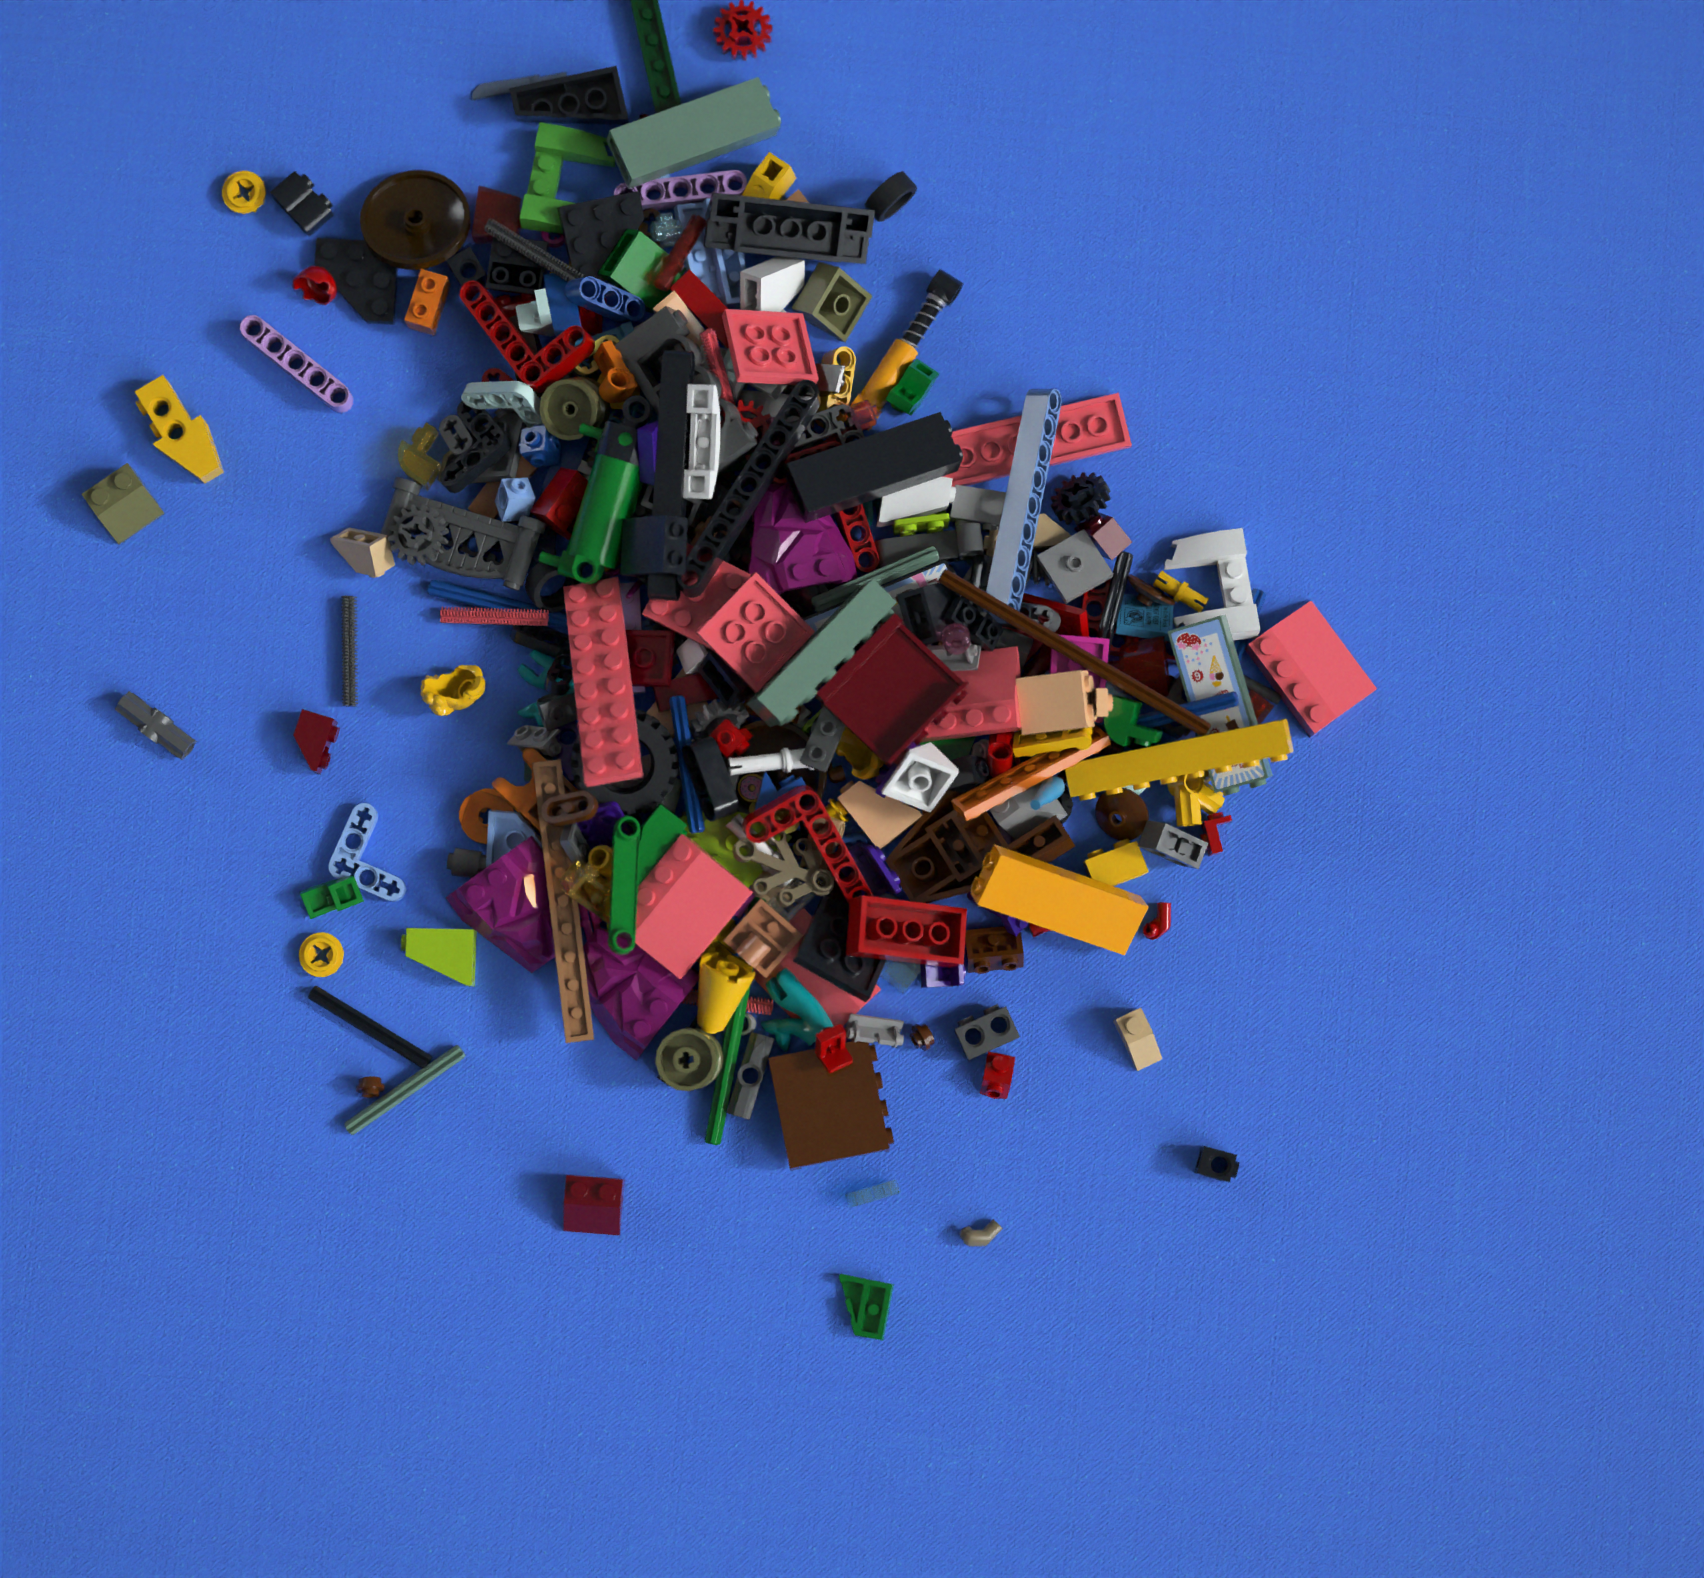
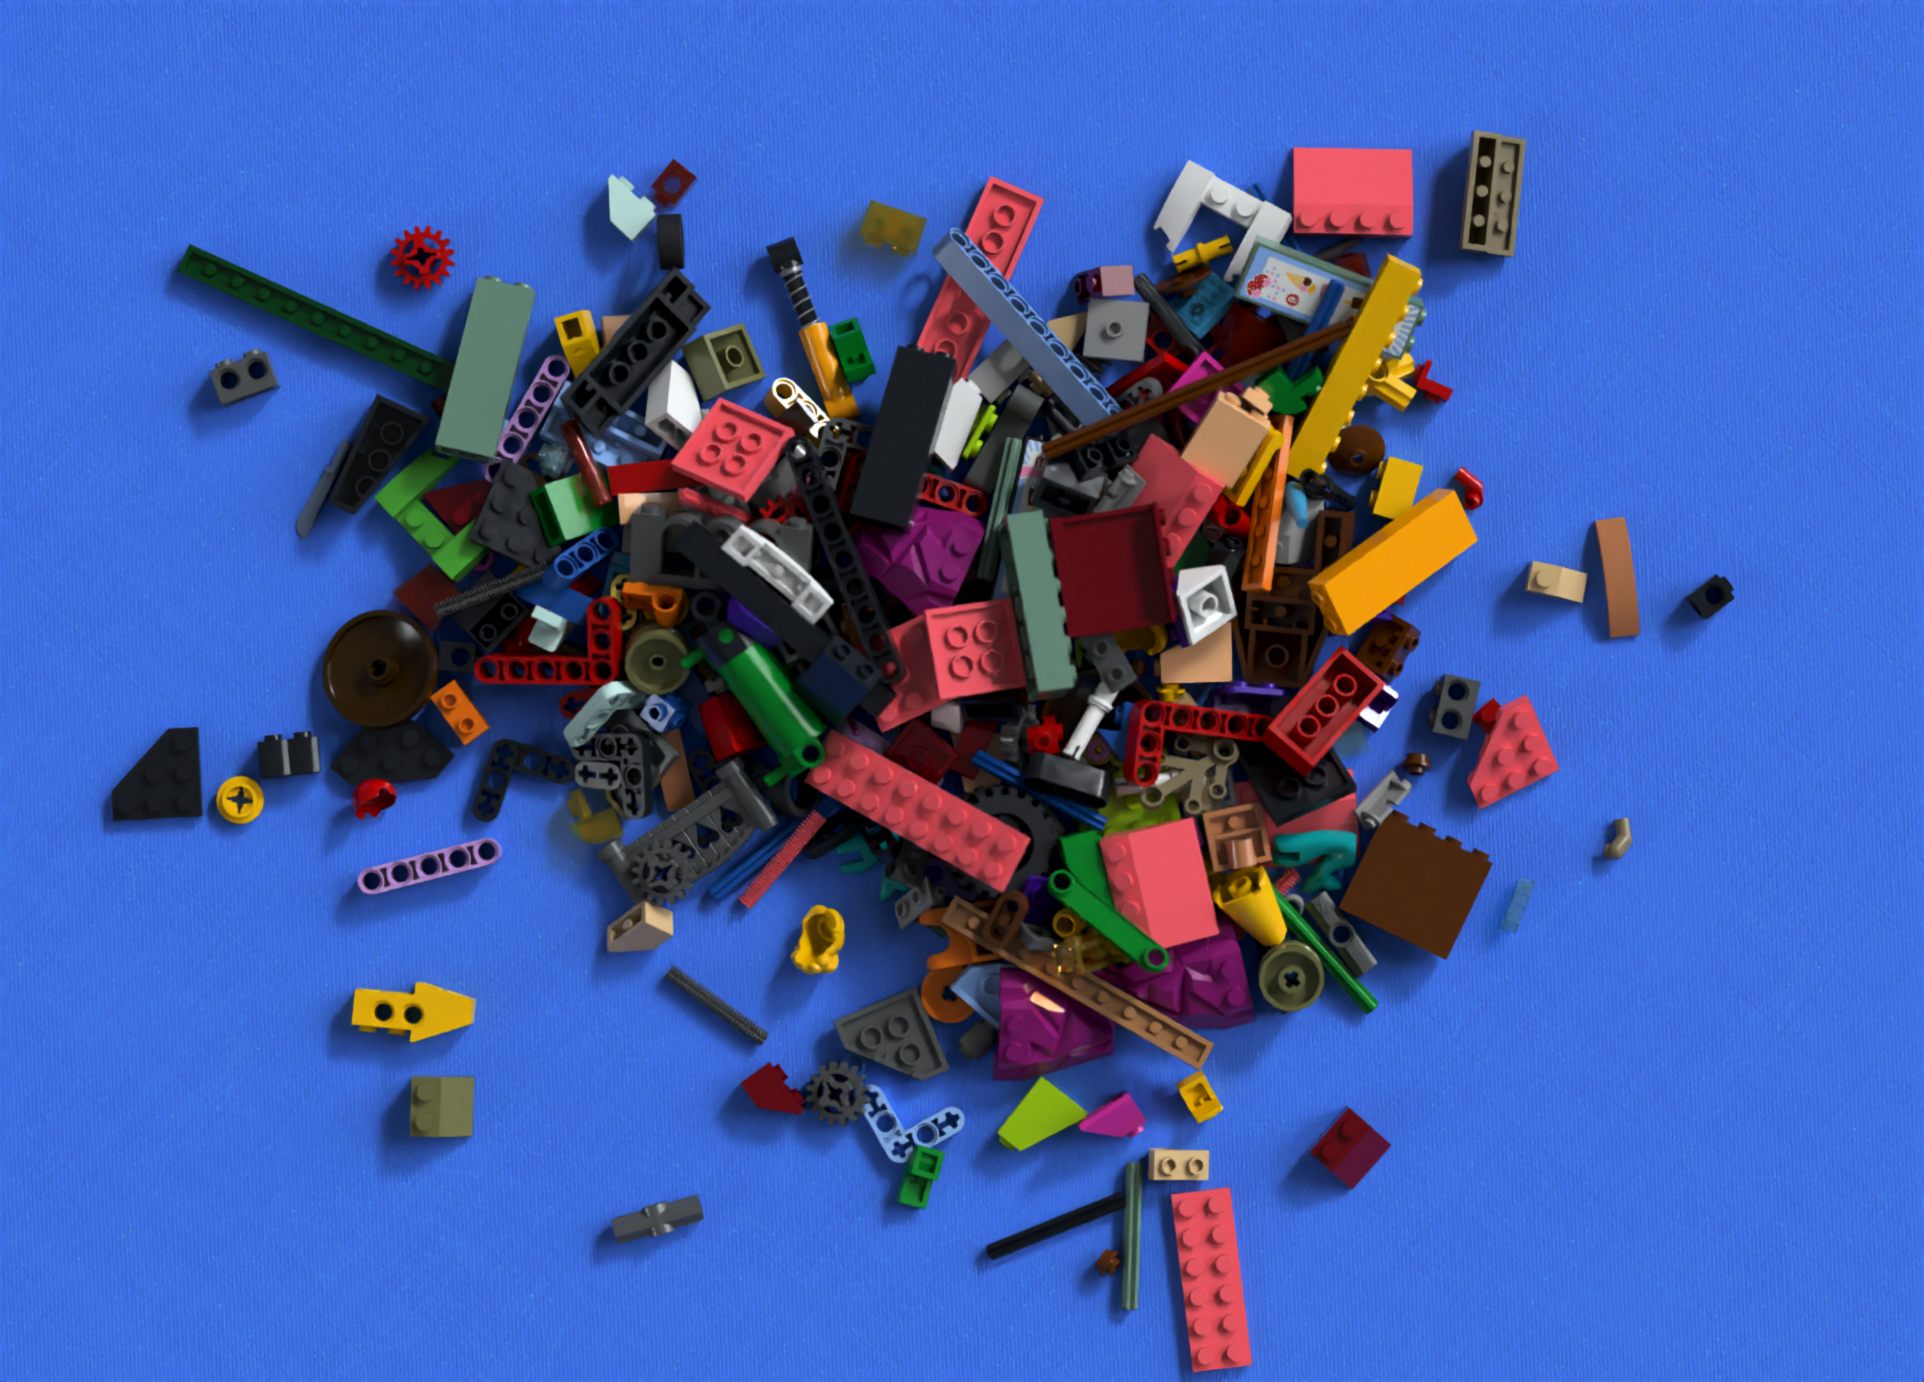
camera: 50 degrees left, 5 degrees up
(217, 127) = (163, 780): none -> black plate
(308, 953) = (973, 1231): yellow gear -> none
(355, 797) = (831, 1084): none -> dark grey gear
(380, 785) = (855, 1060): none -> blue tile
(415, 1175) = (1211, 1279): none -> coral plate
(421, 371) = (515, 762): none -> black beam
(424, 799) = (895, 1035): none -> dark grey plate
(484, 1009) = (1115, 1118): none -> dark pink slope
(484, 1084) = (1178, 1164): none -> tan plate
(514, 498) = (696, 766): light blue brick -> none
(547, 1061) = (1199, 1097): none -> yellow bracket
(580, 185) = (458, 503): none -> dark red wing
(831, 1048) = (1372, 848): red bracket -> none
(864, 414) = (848, 411): clear pink piece -> none
(867, 1304) = (1606, 979): green wing -> none
(889, 150) = (627, 211): none -> light aqua slope
(943, 161) = (676, 171): none -> clear red brick
(956, 638) = (1108, 482): clear pink piece -> none
(982, 1102) = (1511, 754): none -> coral plate
(1024, 351) = (892, 228): none -> clear yellow brick
(1074, 794) = (1322, 481): none -> black pin
(1080, 498) = (1059, 279): black gear -> none
(1173, 844) = (1415, 428): dark grey brick -> none
(1177, 1083) = (1618, 577): none -> nougat slope
(1390, 771) = (1492, 194): none -> dark tan brick

